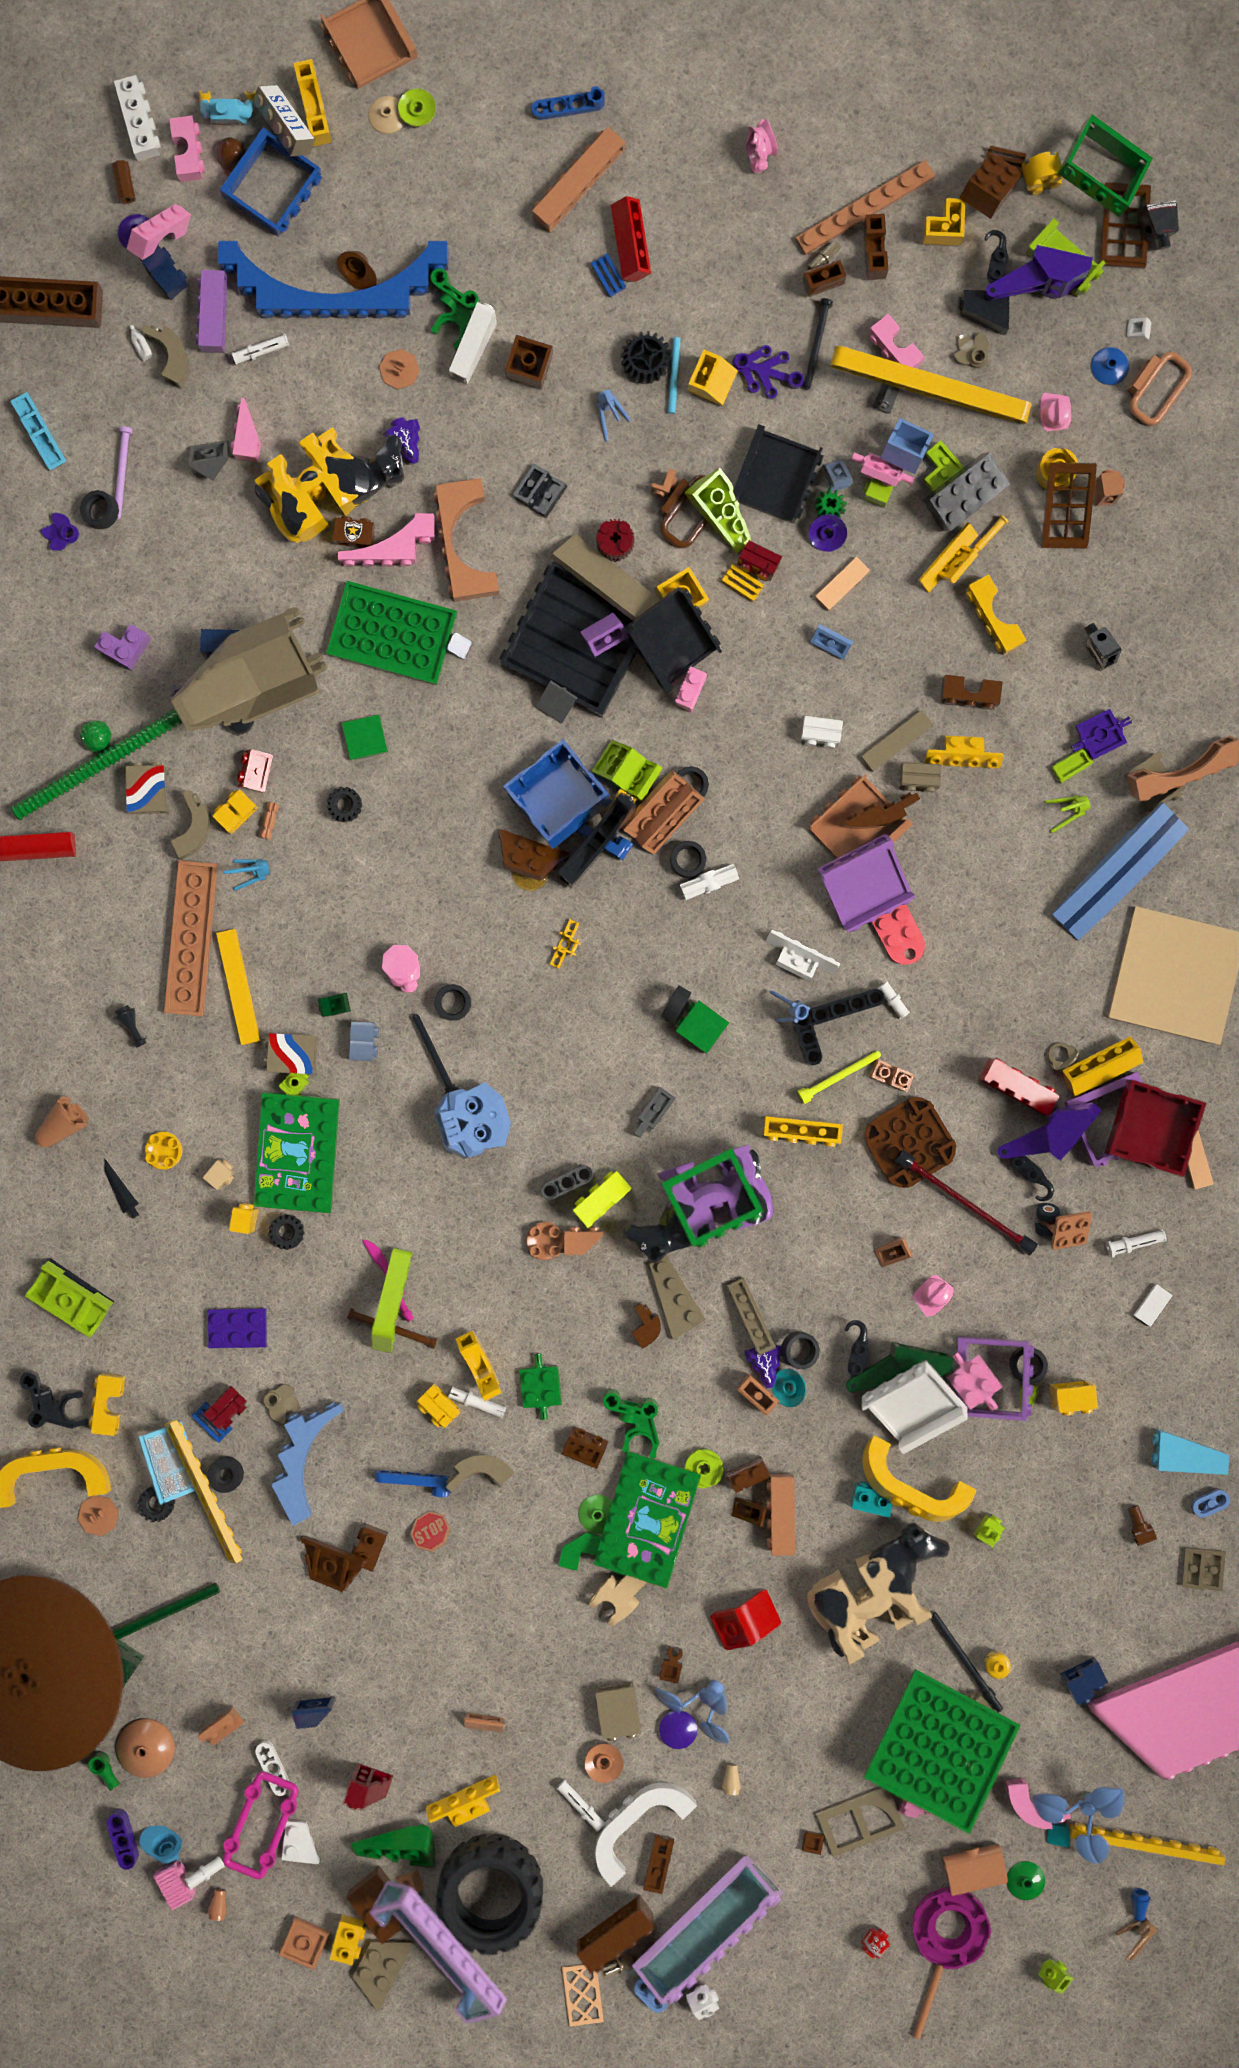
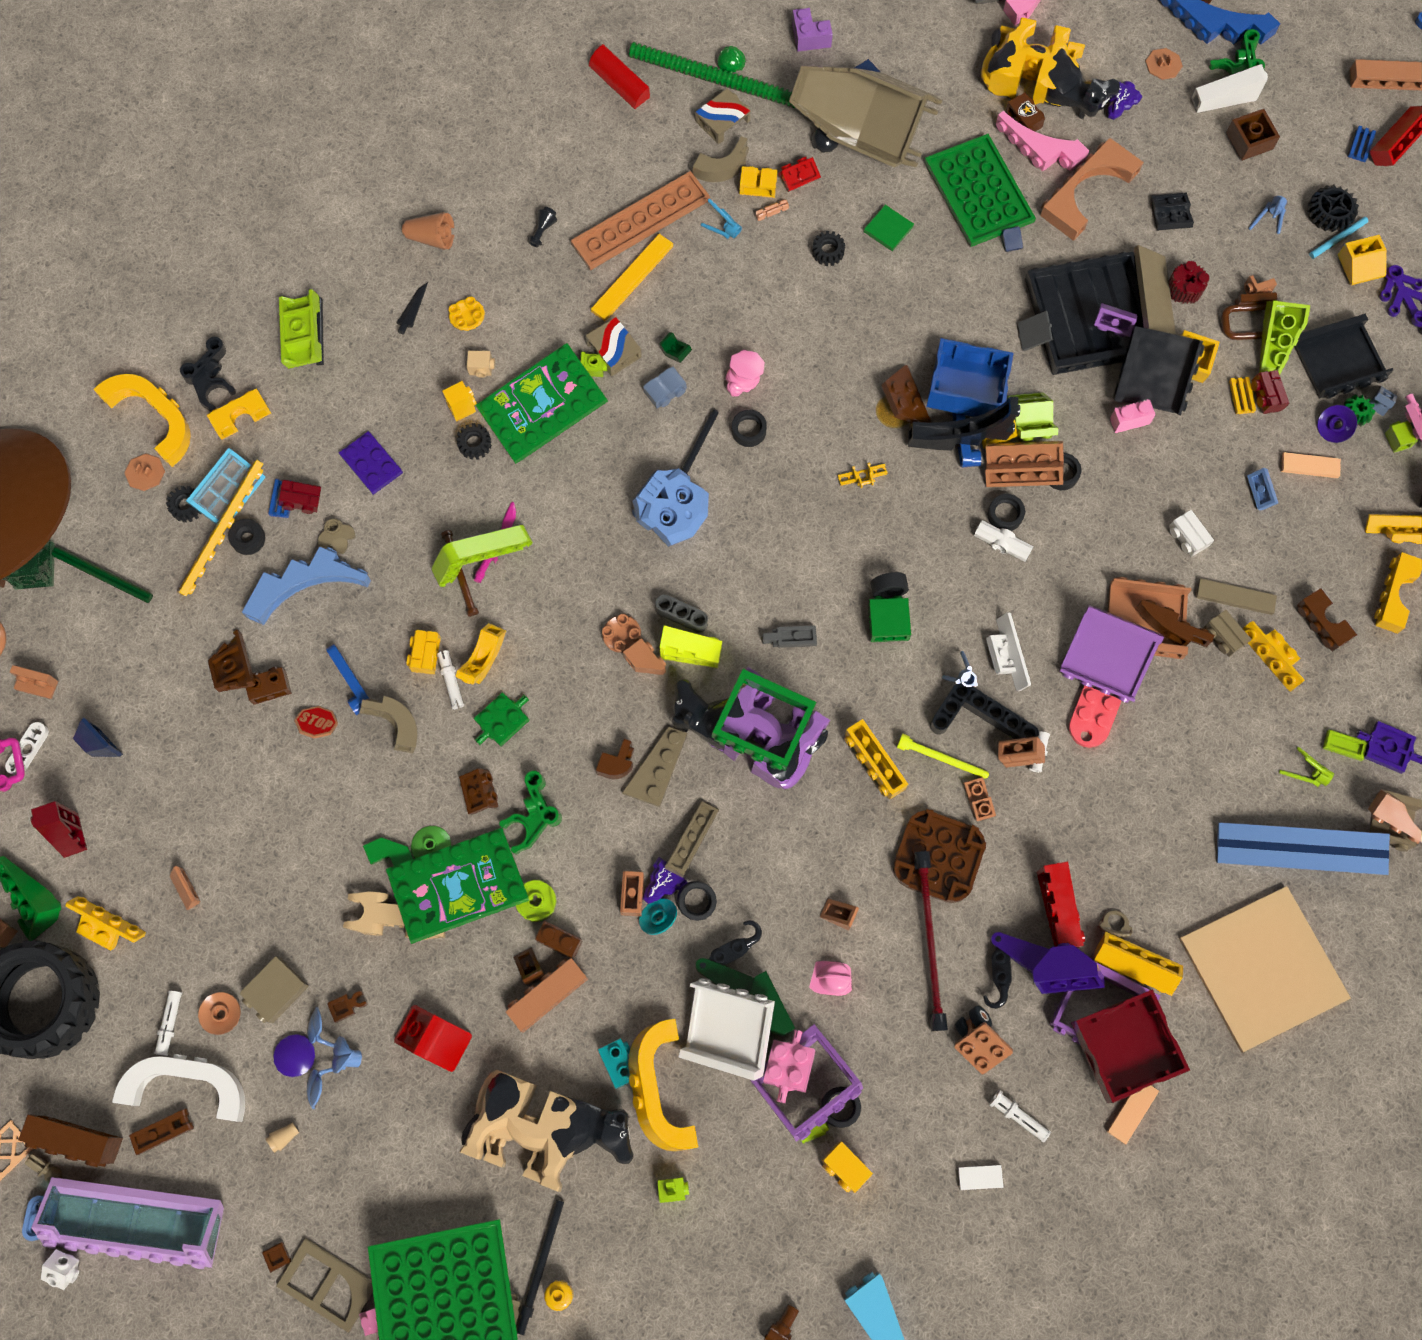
camera: 55 degrees right, 15 degrees down
(885, 1017) = (1021, 752): none -> nougat brick

